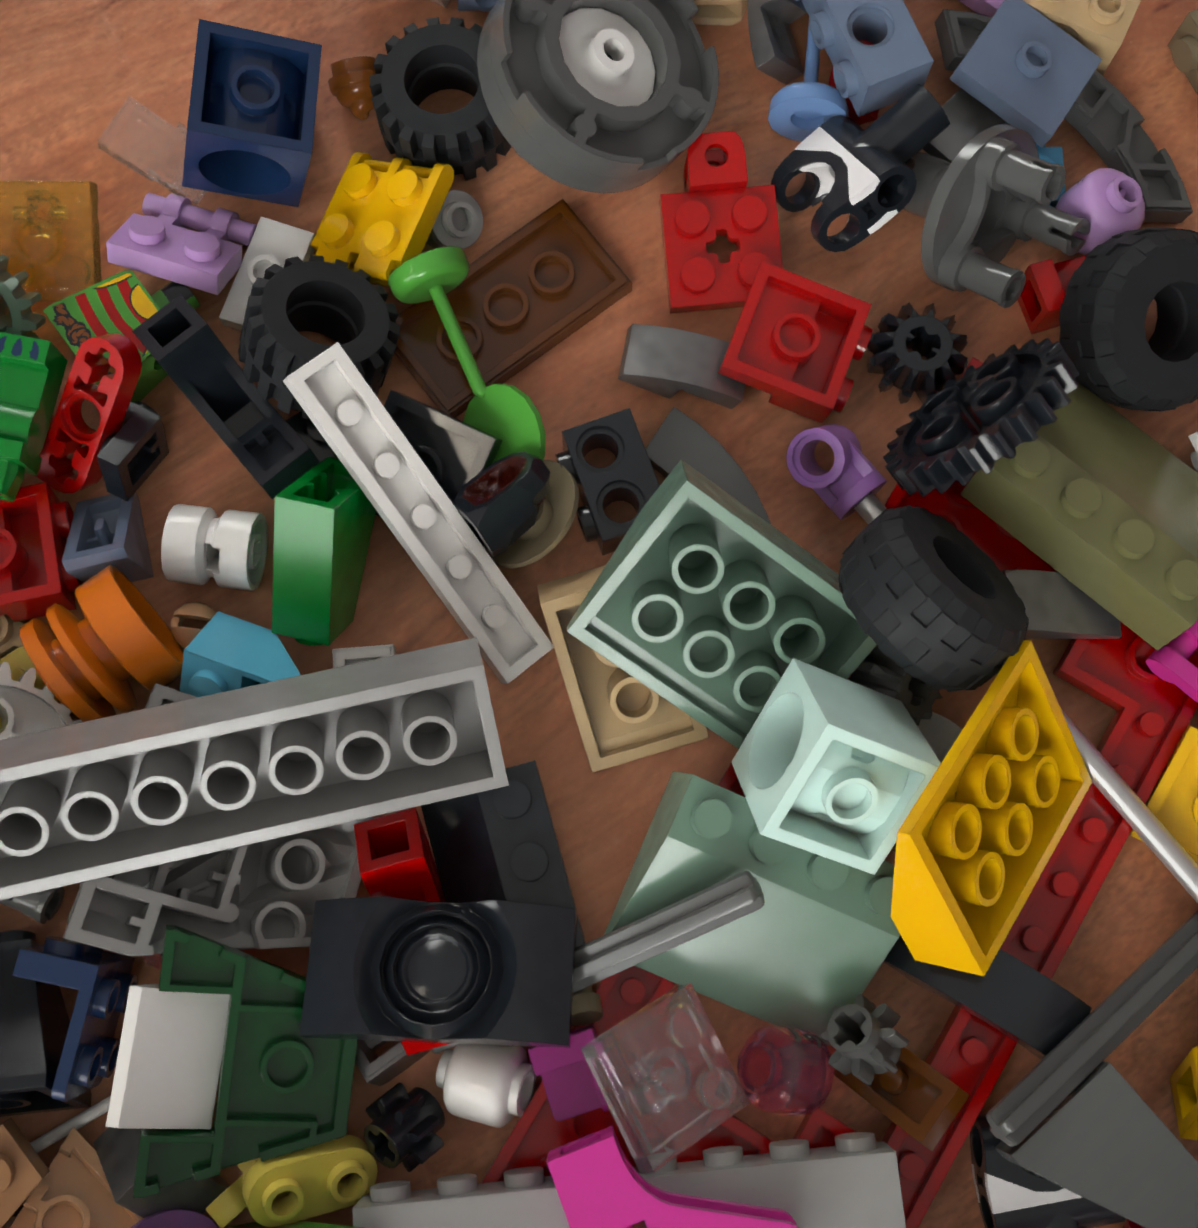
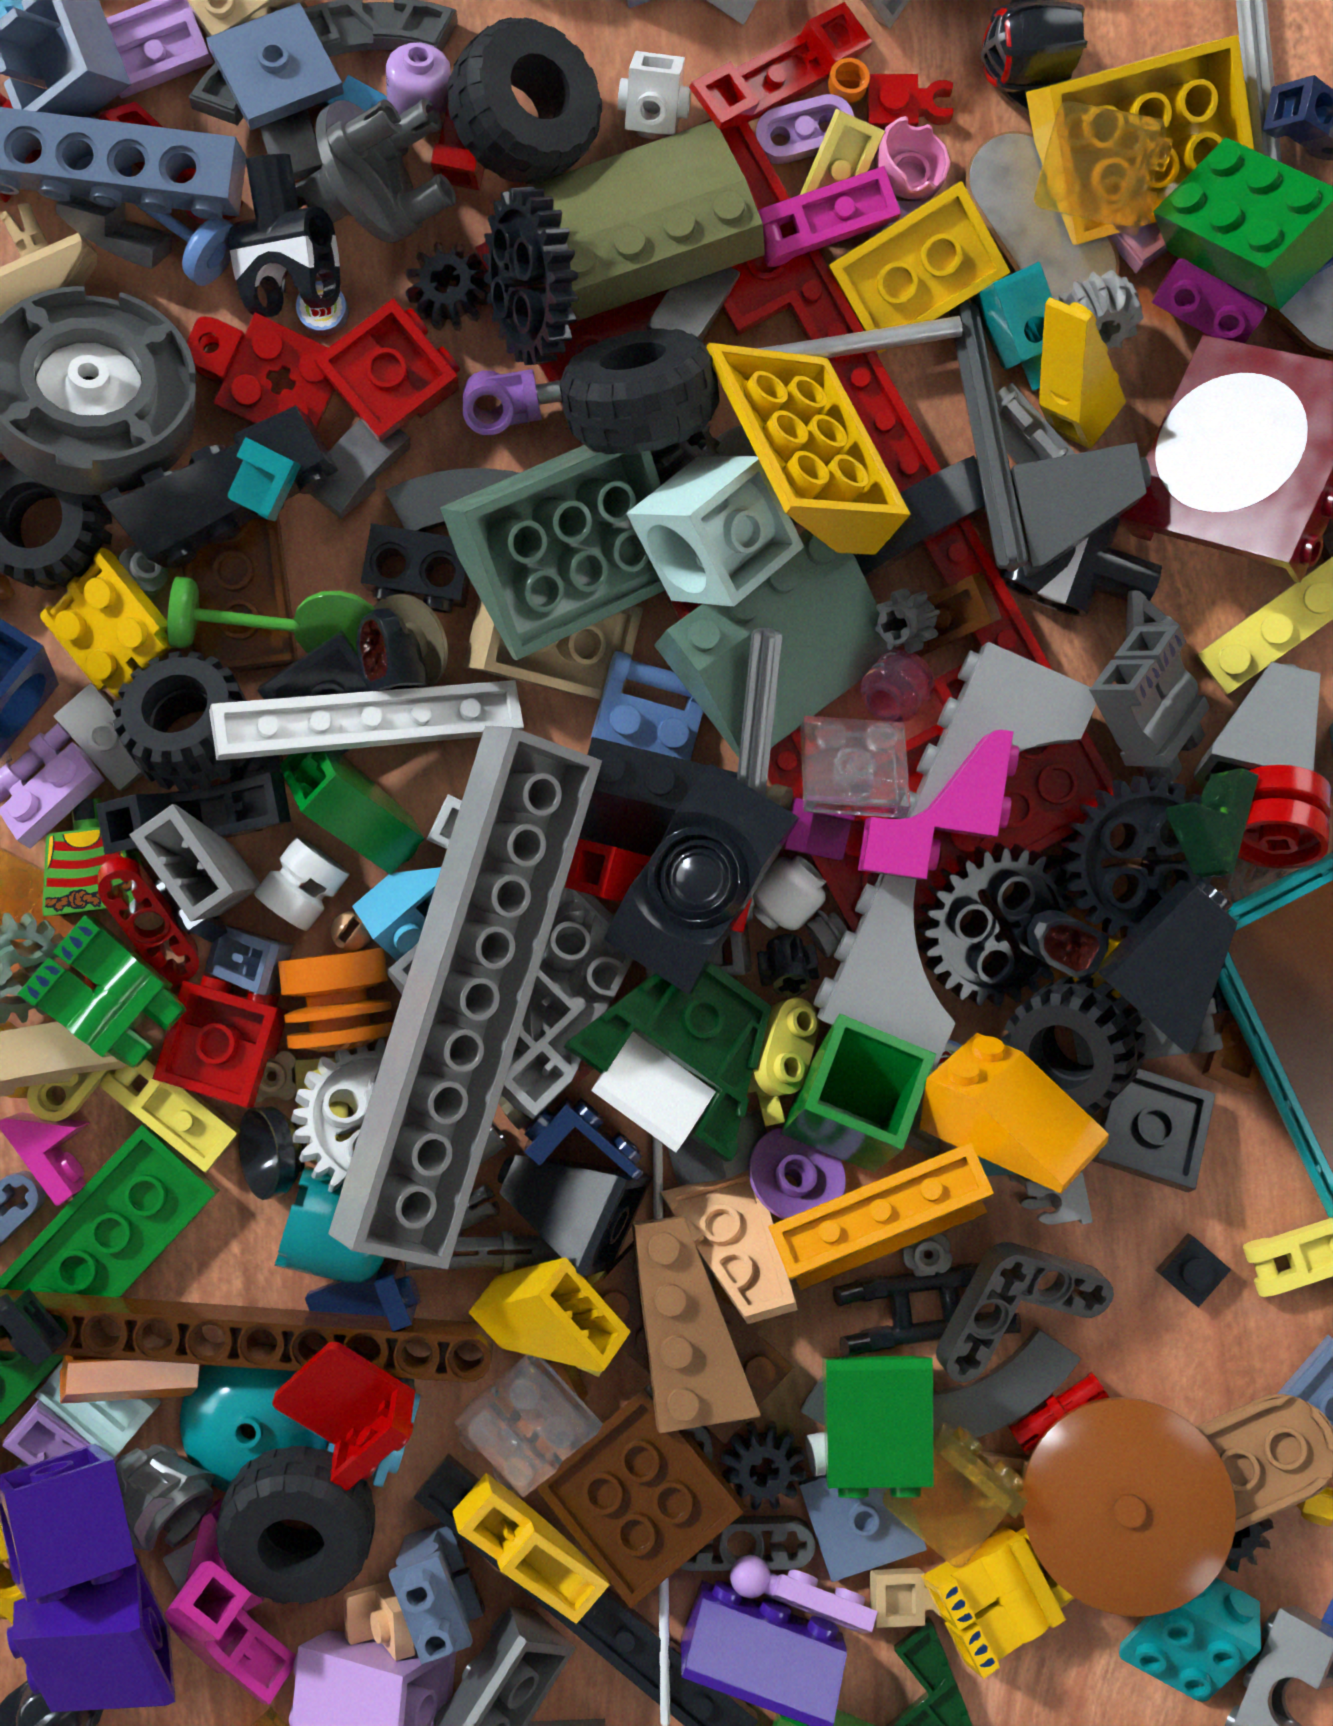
camera: 60 degrees left, 10 degrees up
(166, 424) = (195, 864): none -> light grey slope
(467, 1150) = (826, 932): none -> light grey plate
(577, 243) = (191, 505): none -> black wedge
(585, 810) = (641, 721): none -> medium blue plate
(606, 271) = (262, 479): none -> teal panel
(811, 258) = (323, 321): none -> tile
(1153, 1051) = (1025, 430): none -> light grey hinge

